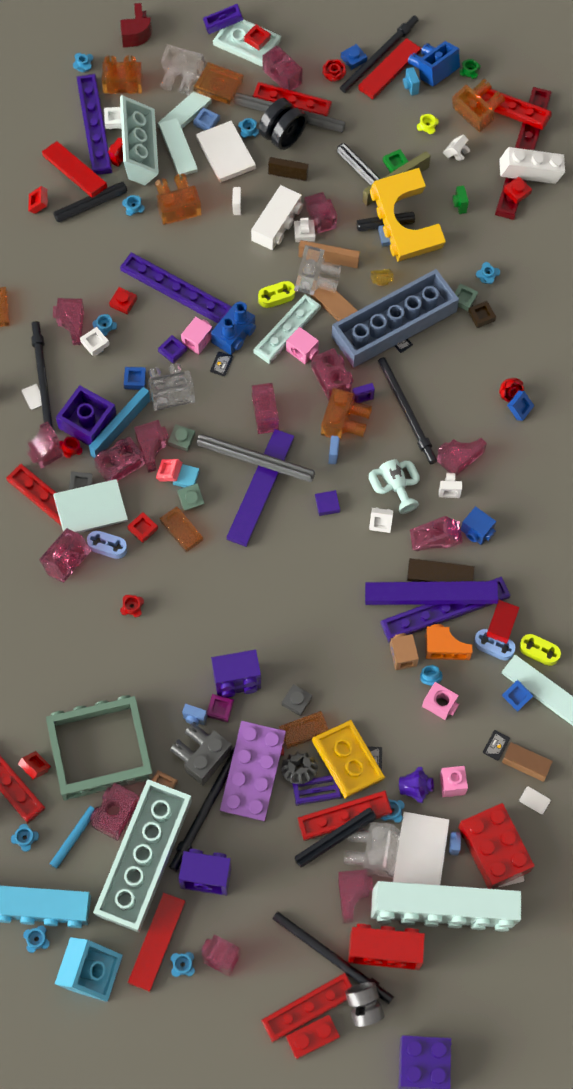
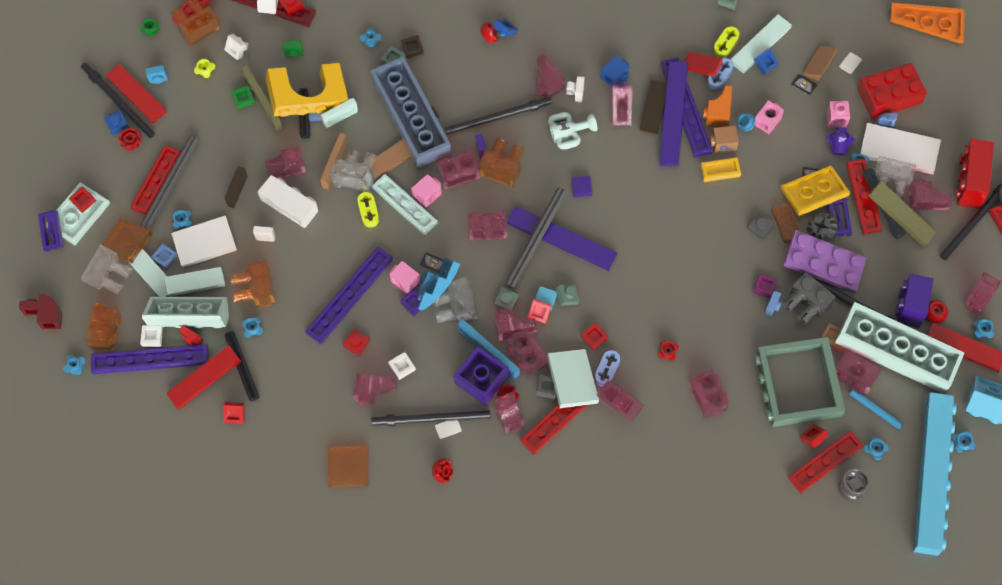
camera: 80 degrees left, 0 degrees up
(76, 644) = (704, 395): none -> clear pink brick
(104, 319) = (382, 353): dark azure plate -> none
(134, 377) = (442, 334): blue plate -> none
(181, 529) = (596, 306): clear orange tile -> none
(188, 360) = (433, 285): none -> dark azure slope
(204, 913) = (941, 315): none -> red plate
(233, 328) = (402, 245): blue brick -> none
(236, 673) = (742, 264): dark purple brick -> none
(282, 68) = (122, 182): clear pink brick -> none
(282, 123) = (190, 183): black wheel -> none
(304, 230) = (303, 180): white tile -> none
(321, 858) = (902, 213): none -> olive tile
(334, 448) = (533, 175): medium blue tile -> none
(357, 163) = (239, 129): axle -> none
(366, 652) = (720, 169): none -> yellow tile
(381, 520) = (603, 144): white tile -> none
(382, 277) = (363, 120): clear yellow plate -> none
(387, 252) = (339, 113): none -> light aqua tile
(436, 62) = (144, 48): blue brick -> none
(445, 905) = (943, 127): light aqua brick -> none

